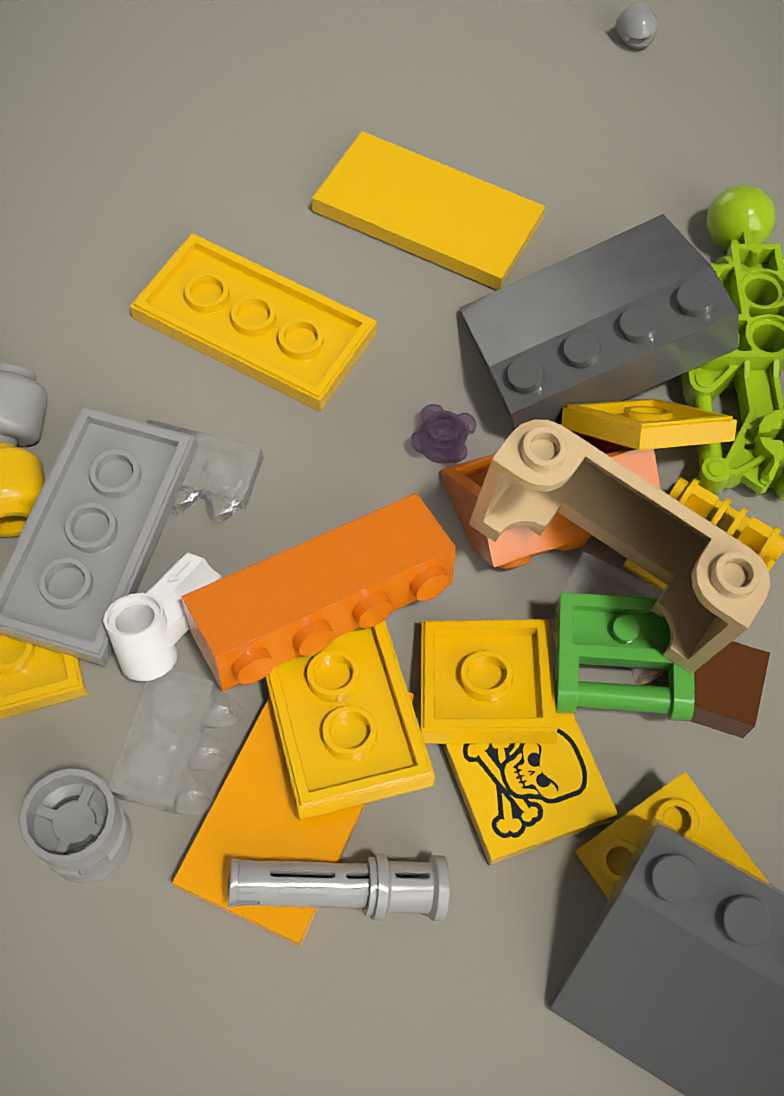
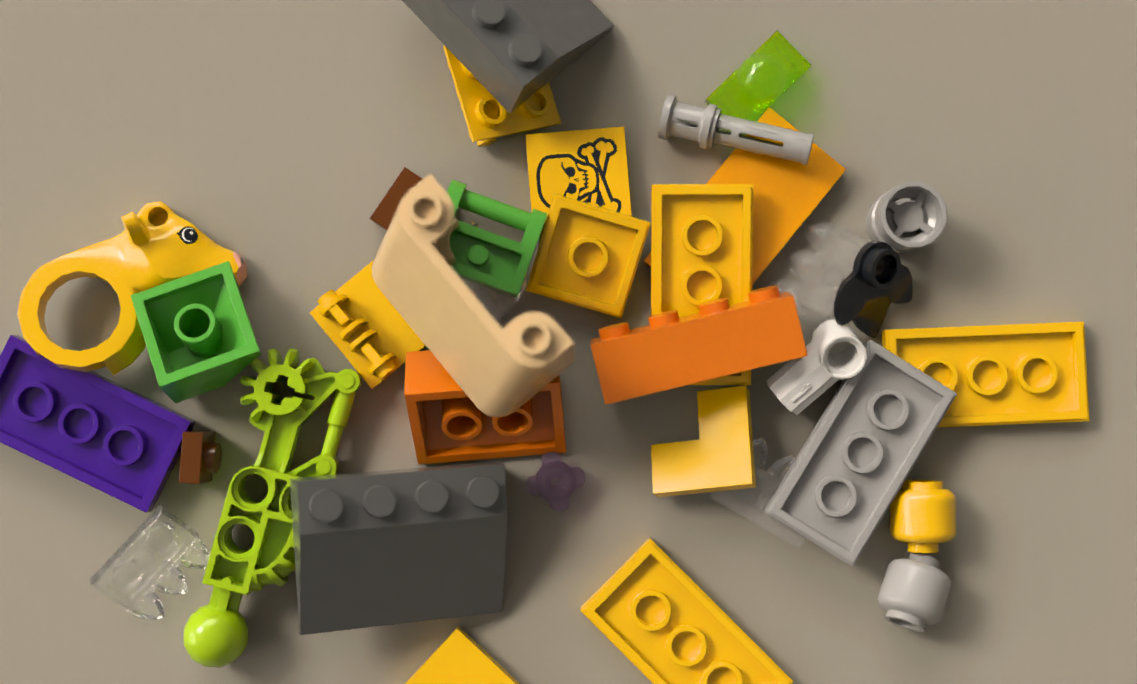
camera: 160 degrees left, 25 degrees up
(111, 726) = (871, 288): none -> black plate
(266, 484) = (719, 458): none -> yellow tile
(321, 981) = (760, 79): none -> clear neon green tile
(649, 423) = (394, 426): yellow tile -> none

